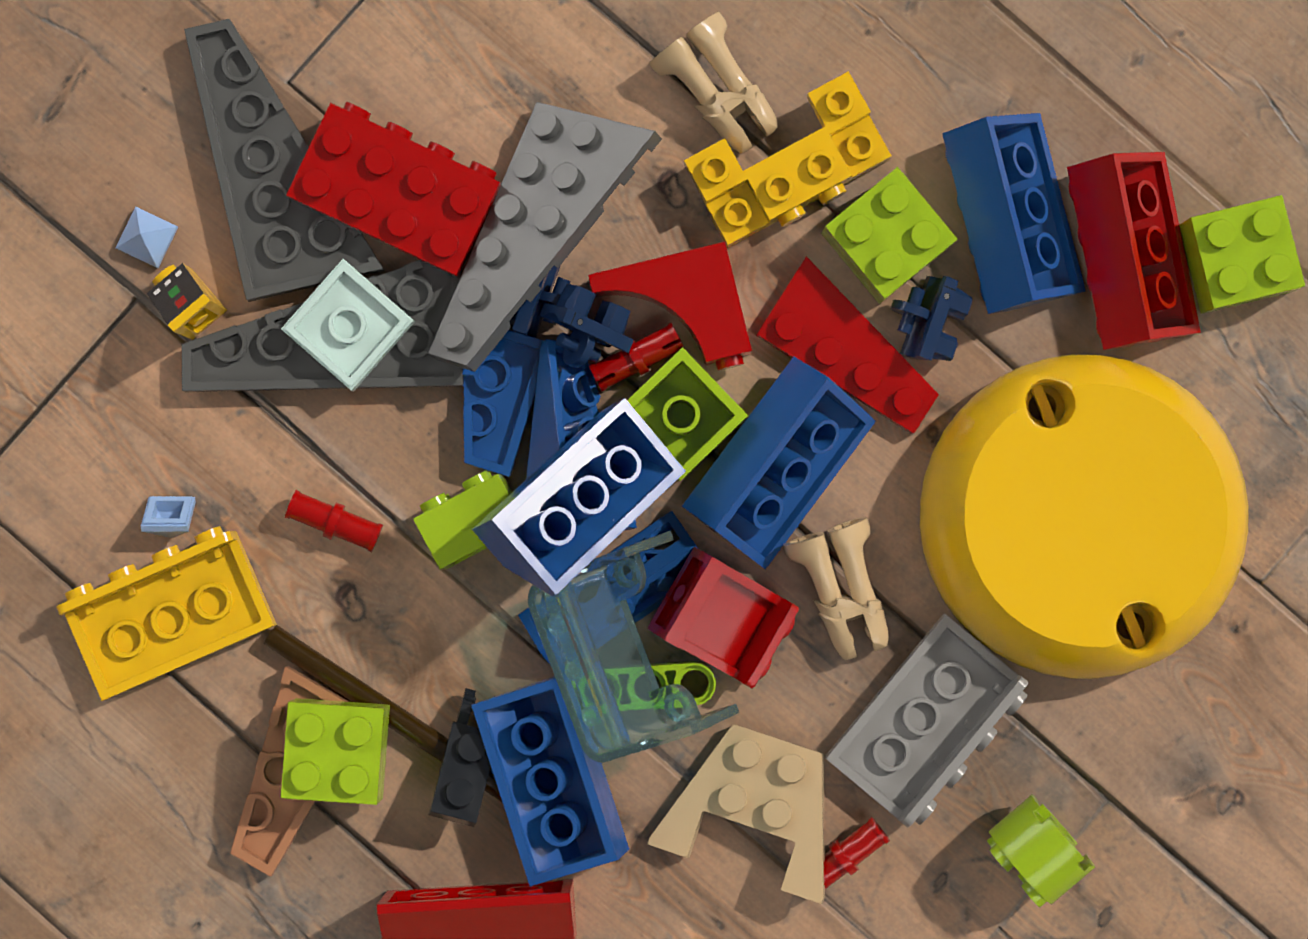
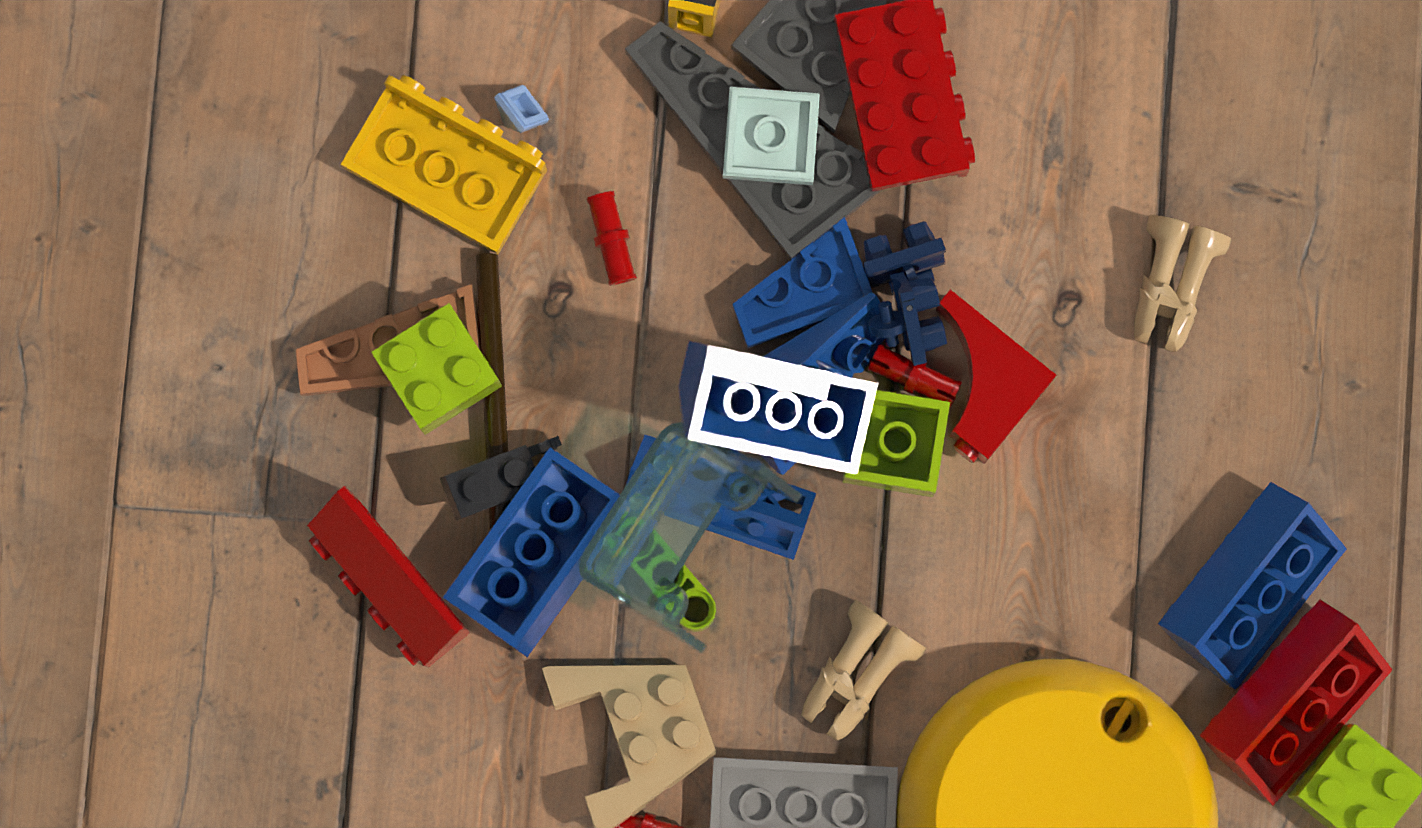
camera: 50 degrees right, 5 degrees down
(449, 521) = (677, 322): lime brick -> none
(540, 214) = (965, 218): wing -> none
(723, 618) = (763, 594): red panel -> none
(779, 462) = (917, 548): blue slope -> none
(796, 175) = (1150, 393): yellow bracket -> none
(837, 340) = (1045, 525): red wing -> none
(888, 235) = (1159, 500): lime brick -> none
(925, 316) = (1117, 575): dark blue hips -> none

